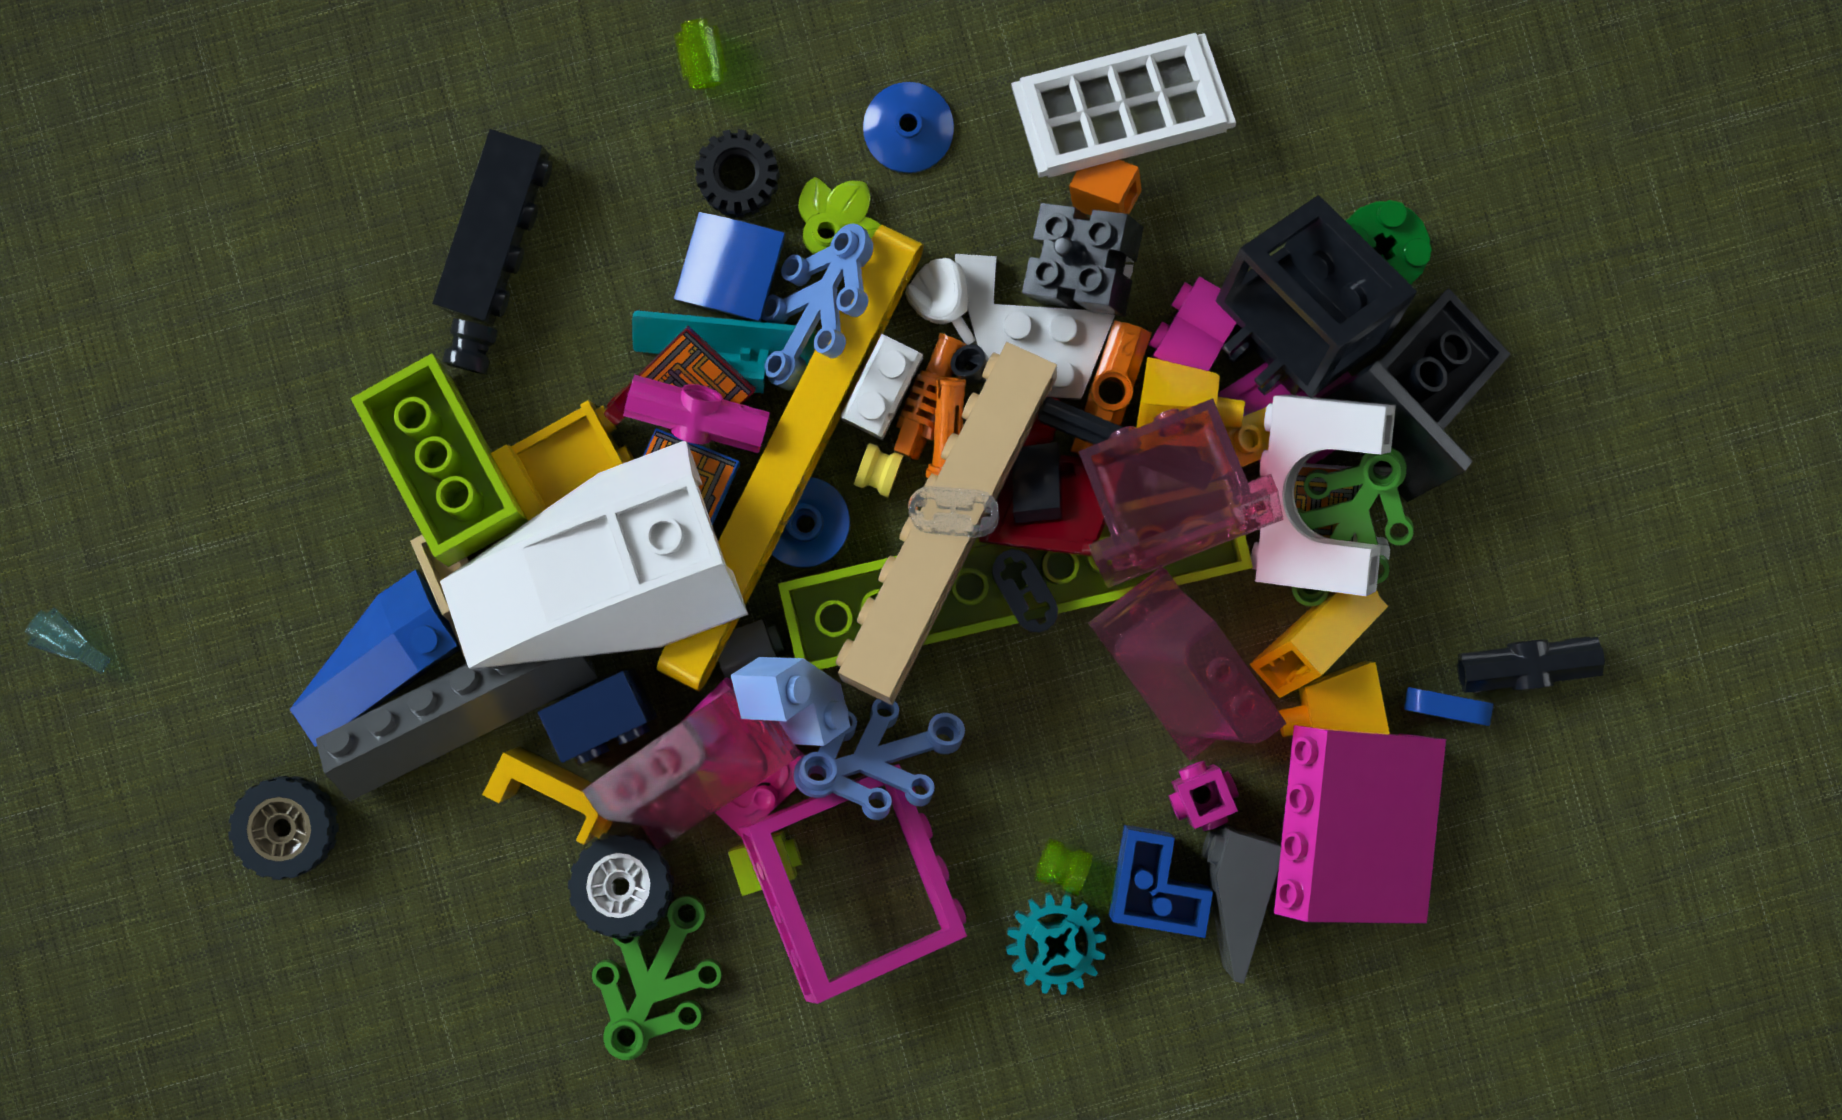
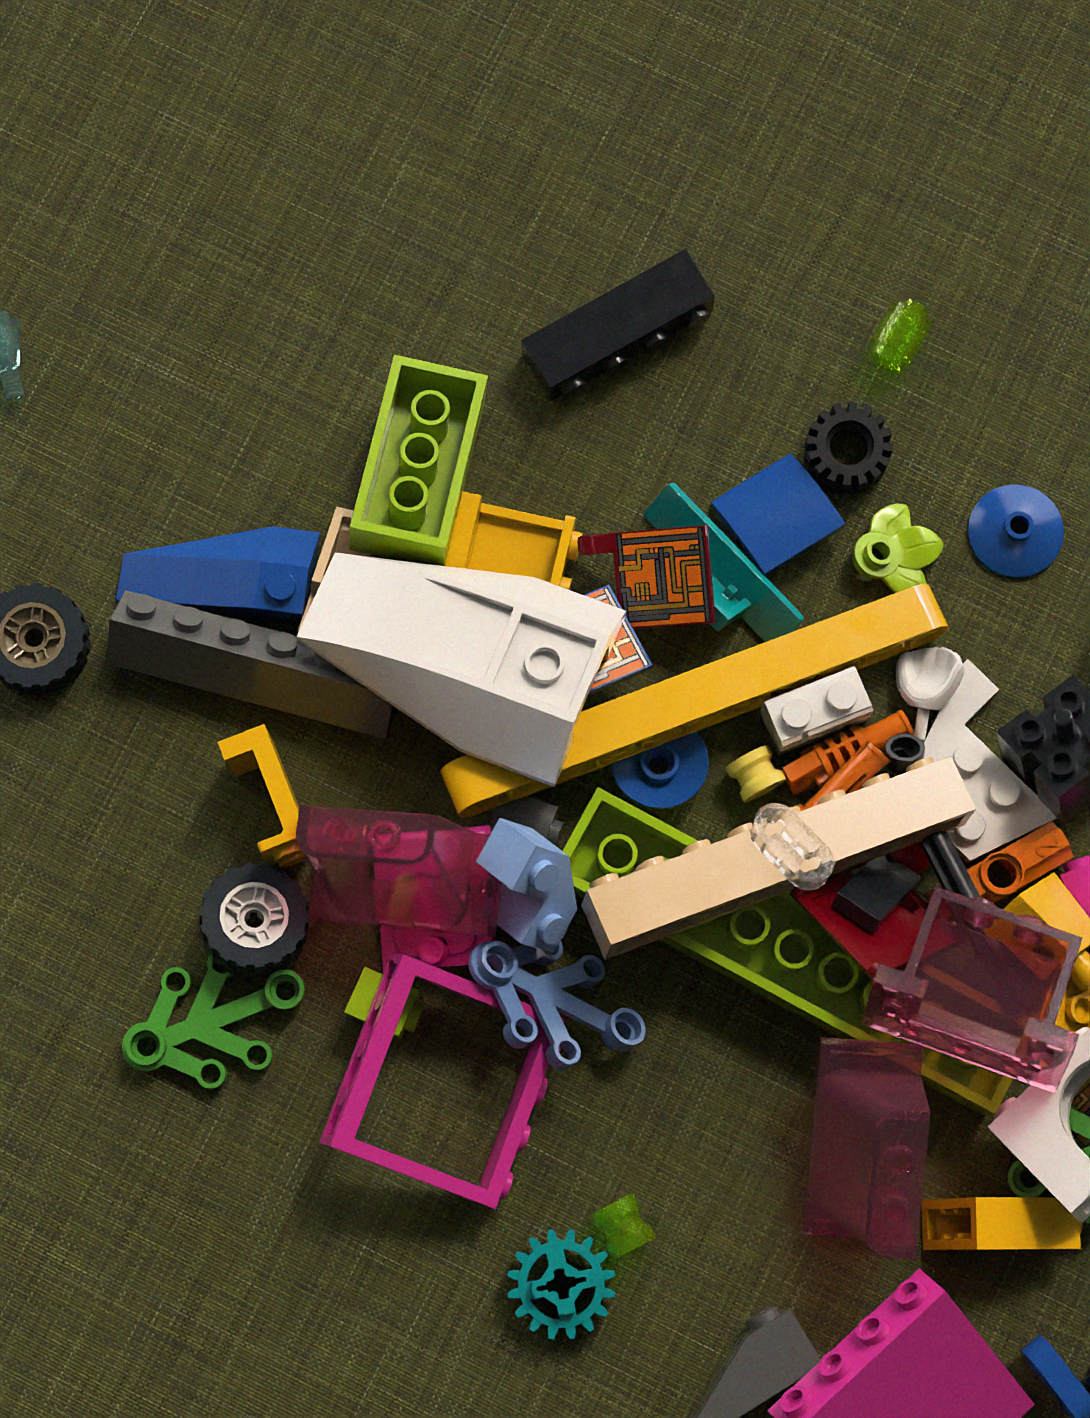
camera: 40 degrees right, 10 degrees down
(470, 346) = (519, 399): black wheel -> none
(598, 714) = (360, 766): dark blue brick -> none
(696, 413) = (652, 599): dark pink piece -> none
(847, 254) = (877, 582): medium blue plant -> none
(1035, 585) = (780, 962): black beam -> none
(1145, 894) = (671, 1308): blue brick -> none
(1215, 808) = (810, 1275): dark pink brick -> none
(1340, 701) = (981, 1293): yellow torso -> none

